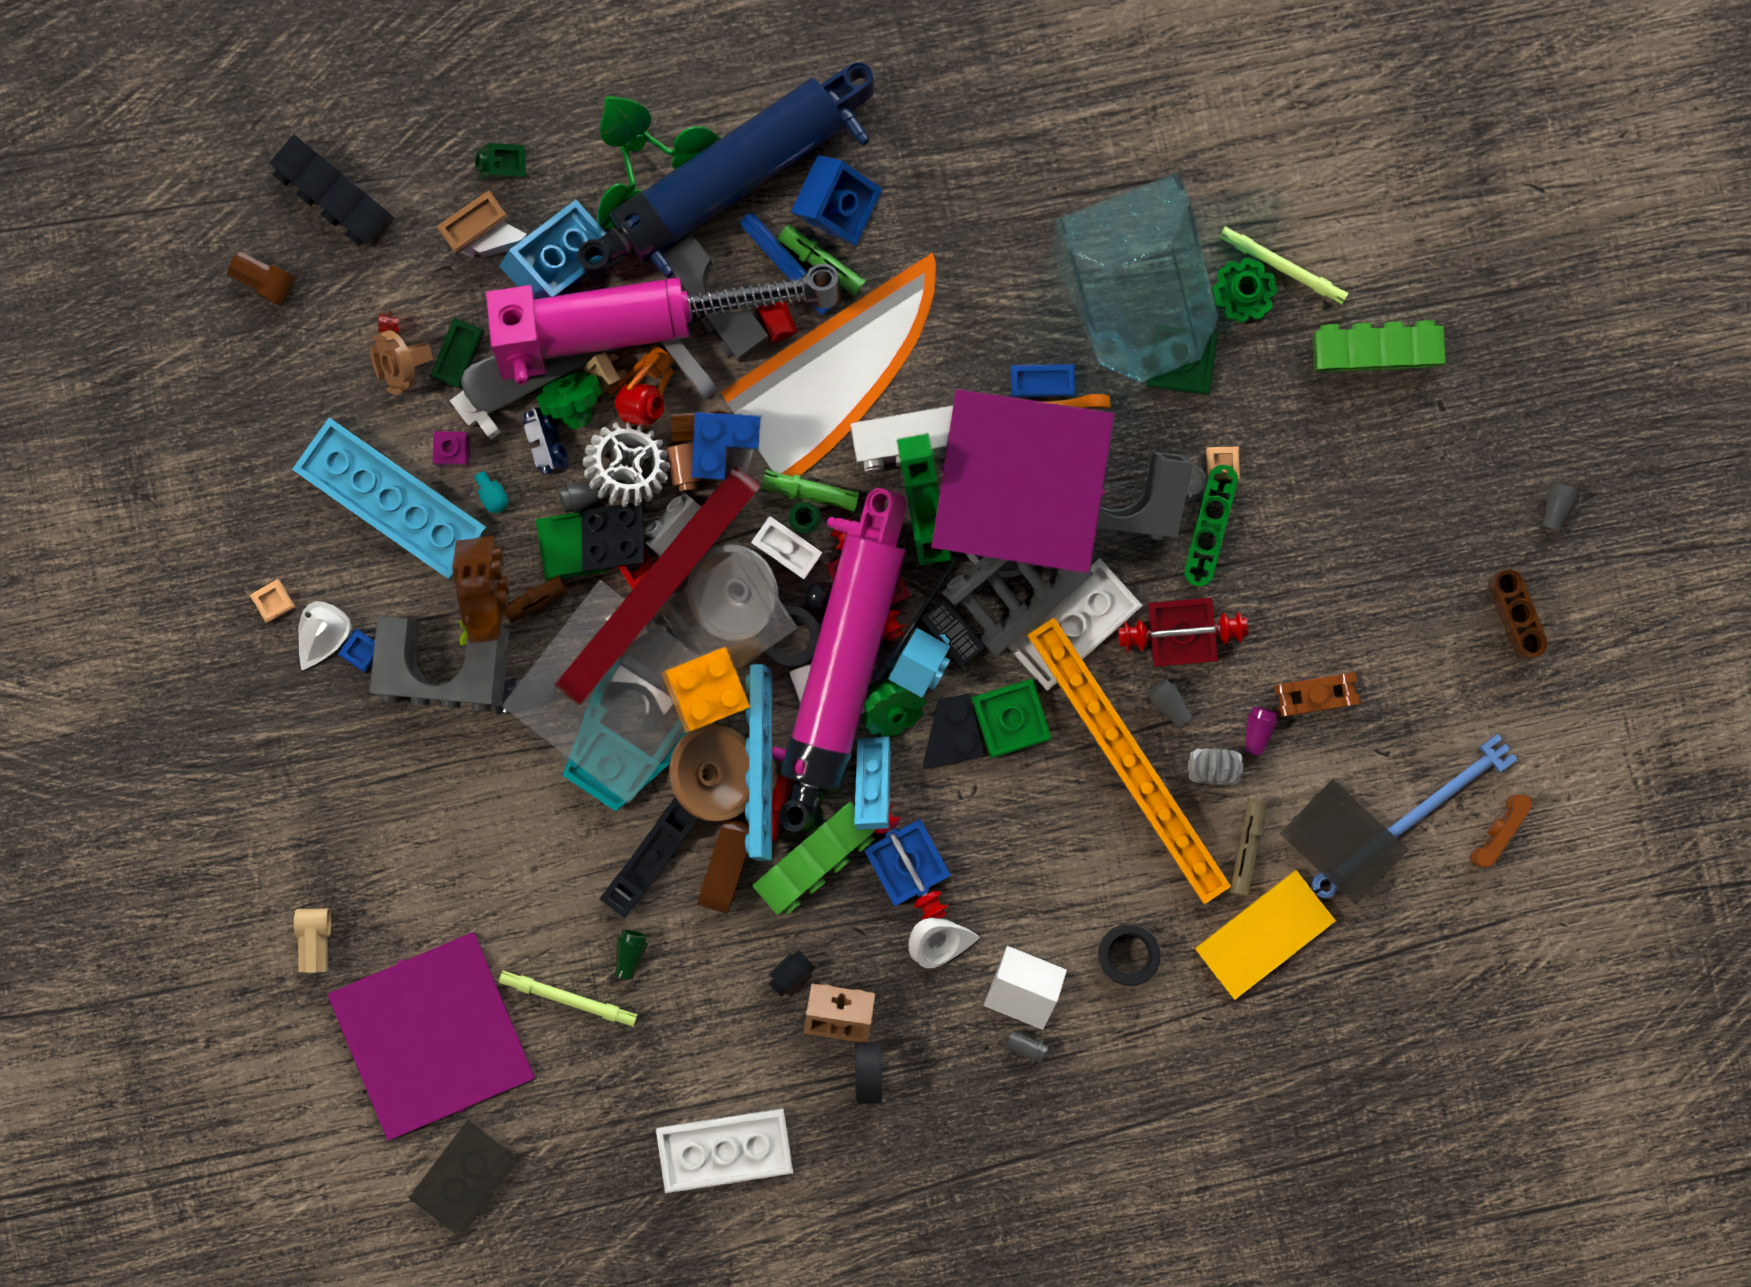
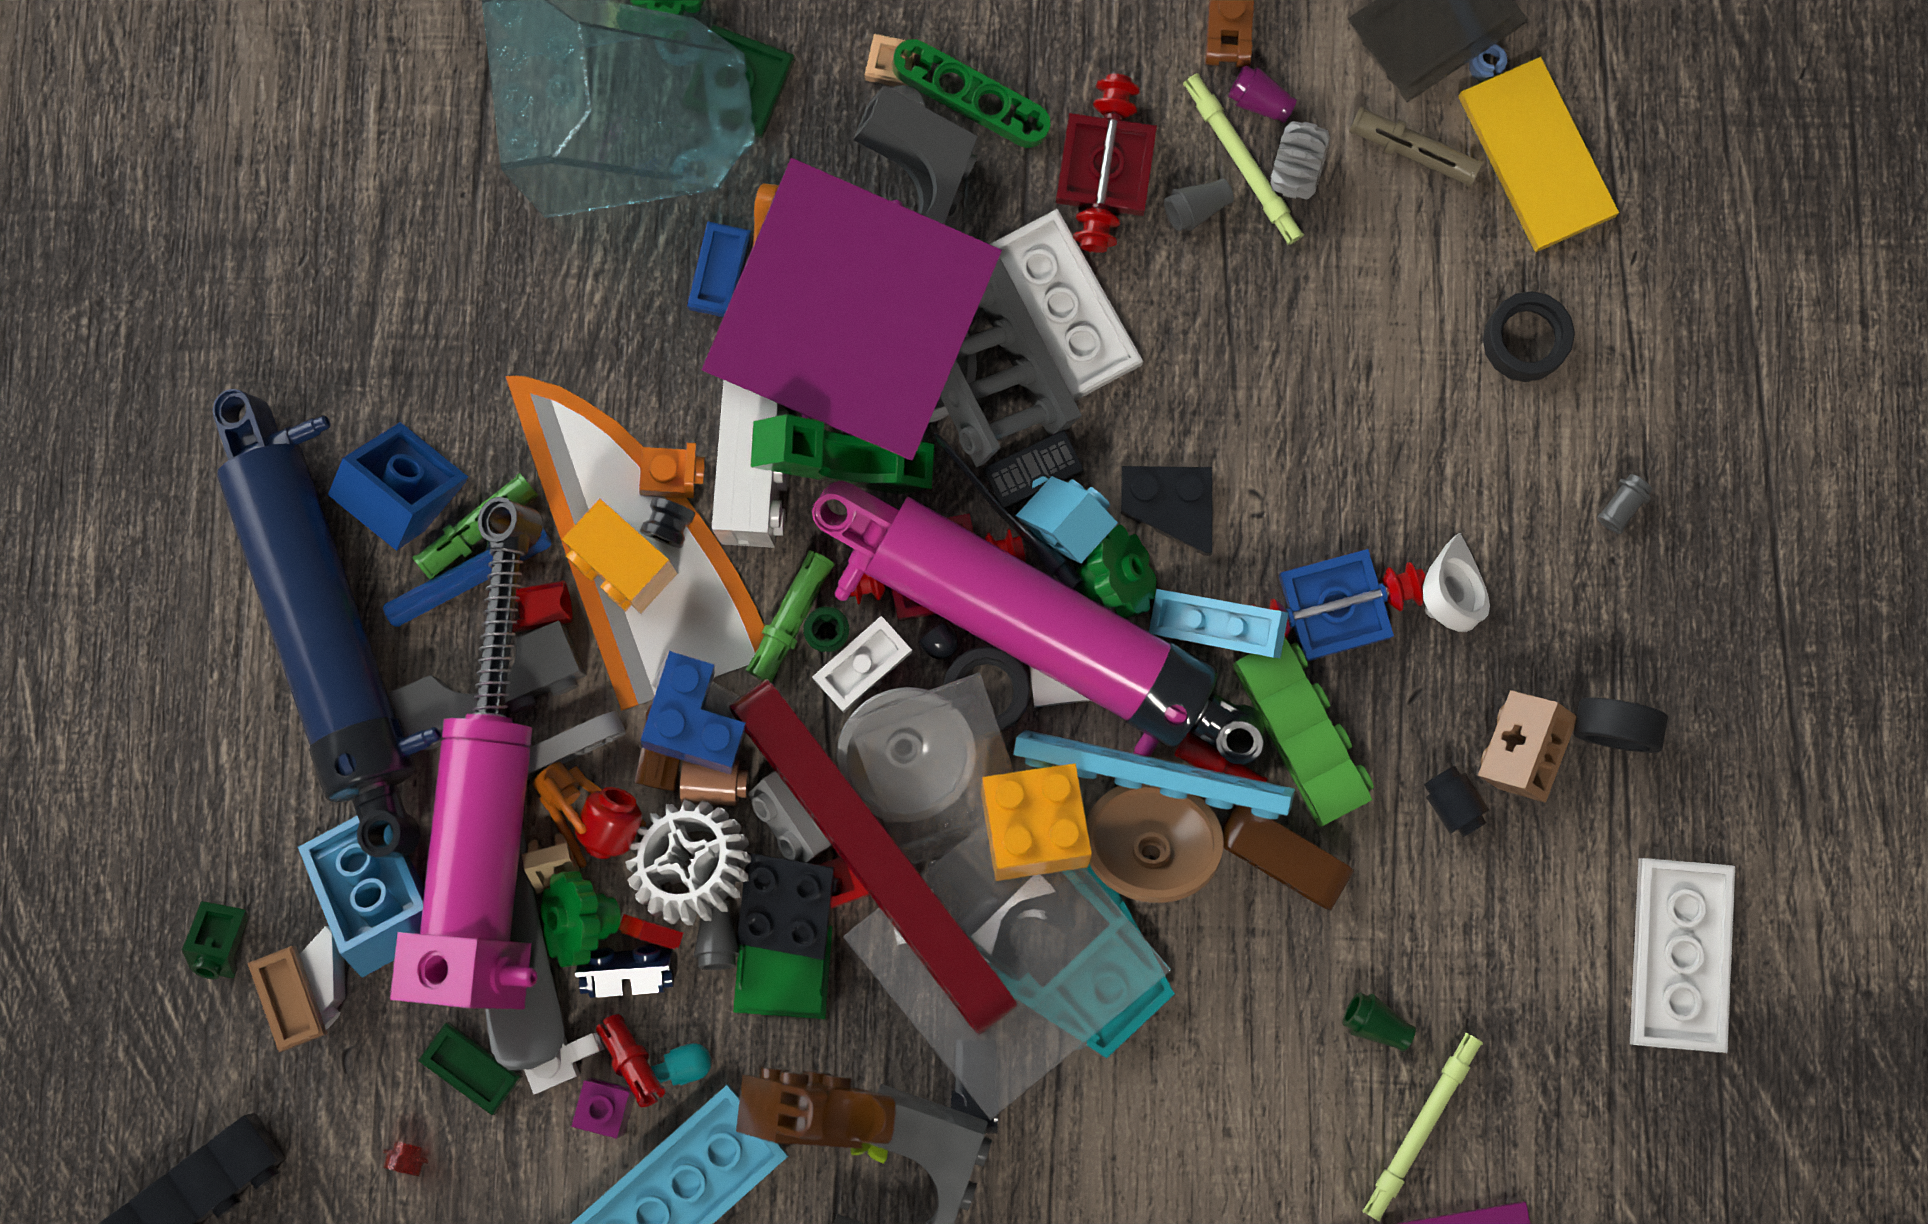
camera: 70 degrees left, 5 degrees down
(397, 361) = (457, 1157): medium nougat tile -> none
(486, 458) = (630, 1060): none -> red pin
(535, 599) = (846, 1037): reddish brown pin -> none
(574, 450) = (650, 931): none -> red tile
(625, 125) = (209, 749): green plant -> none
(649, 859) = (1251, 963): black slope -> none
(819, 364) = (618, 554): none -> light orange brick
(854, 391) = (667, 522): none -> black wheel
(891, 384) = (671, 471): none -> orange bracket
(1011, 718) = (1169, 418): green plate -> none
(1025, 987) = (1543, 486): white slope -> none
(1128, 760) = (1263, 274): light orange plate -> none
(1182, 756) = (1212, 112): none -> yellowish green piece

